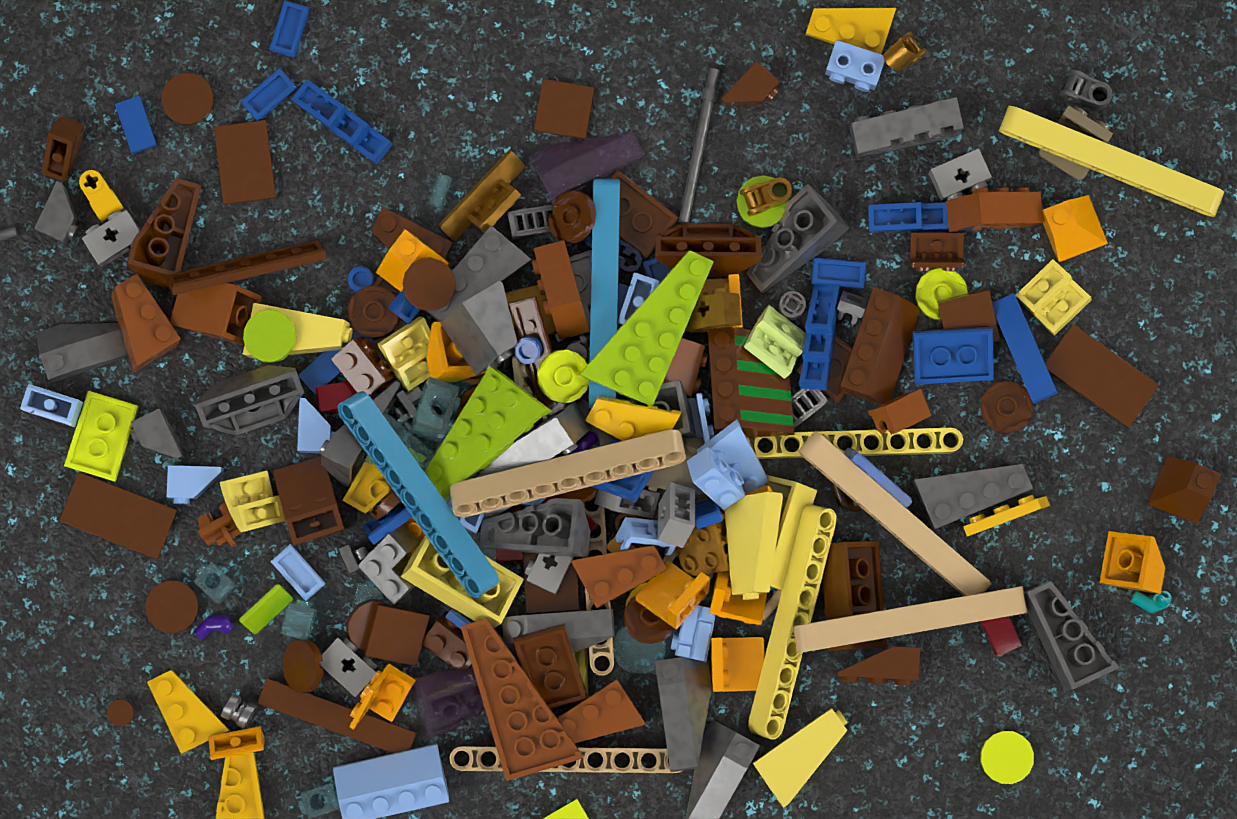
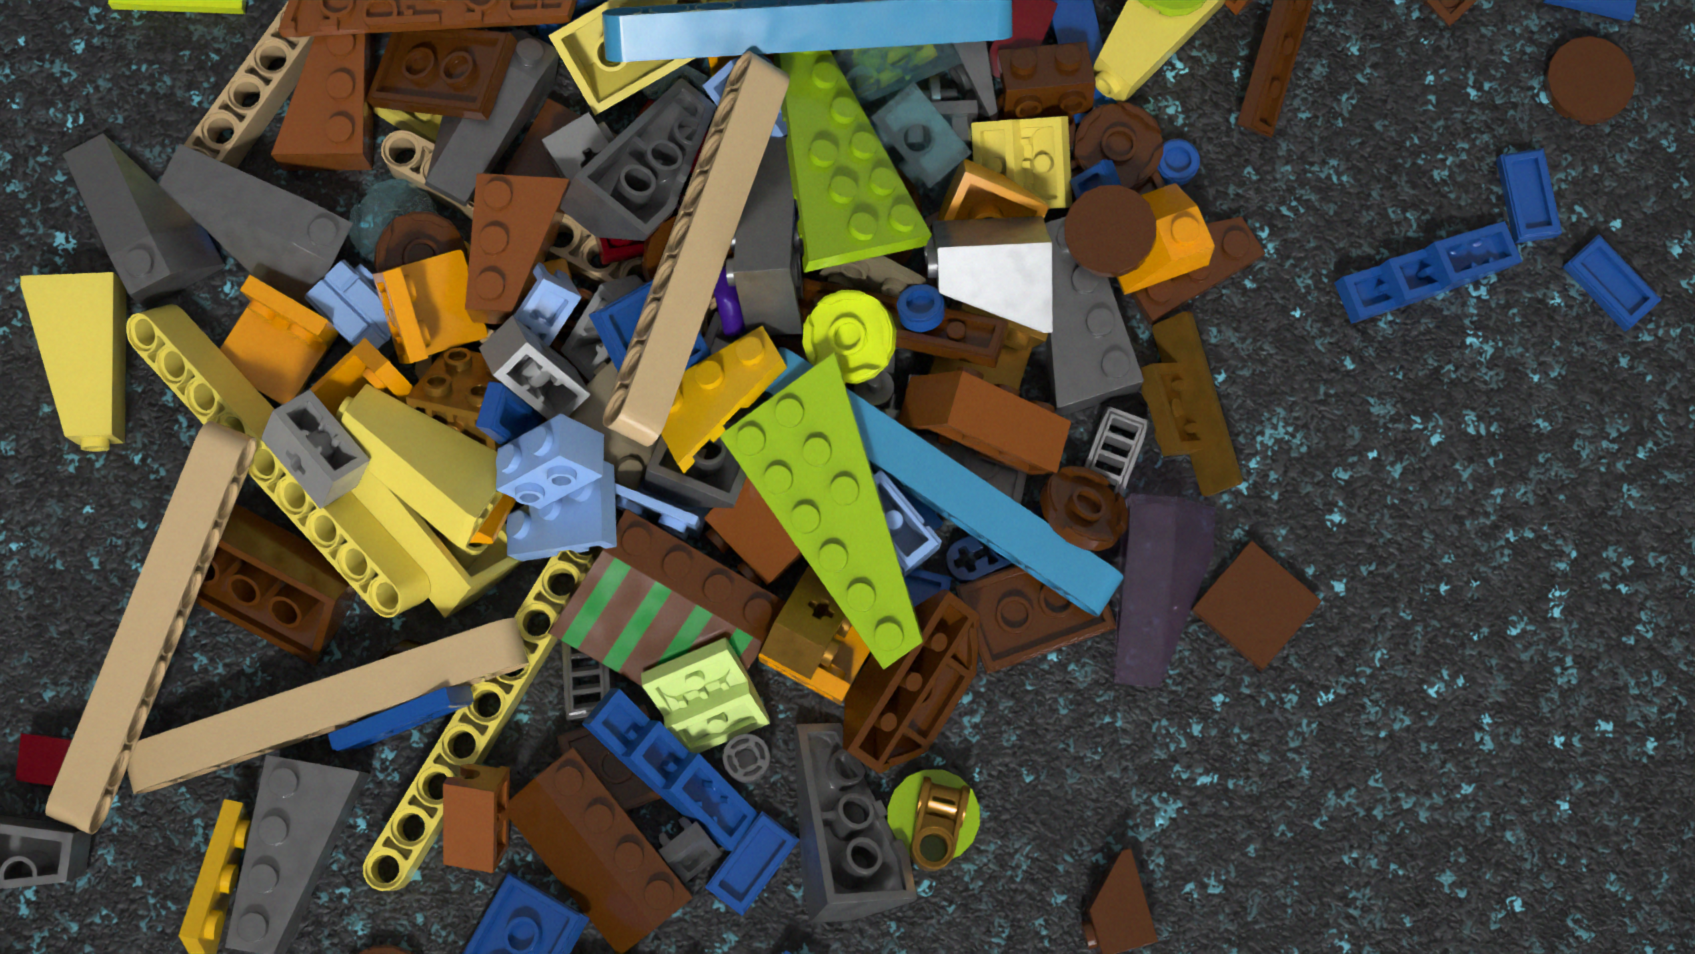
camera: 115 degrees right, 5 degrees down
(245, 162) = (1447, 104): reddish brown tile -> none
(439, 192) = (1239, 348): clear light blue pin -> none
(708, 96) = (1146, 836): flat silver bar -> none
(779, 596) = (315, 448): none -> light grey brick
(892, 663) = (116, 543): reddish brown slope -> none

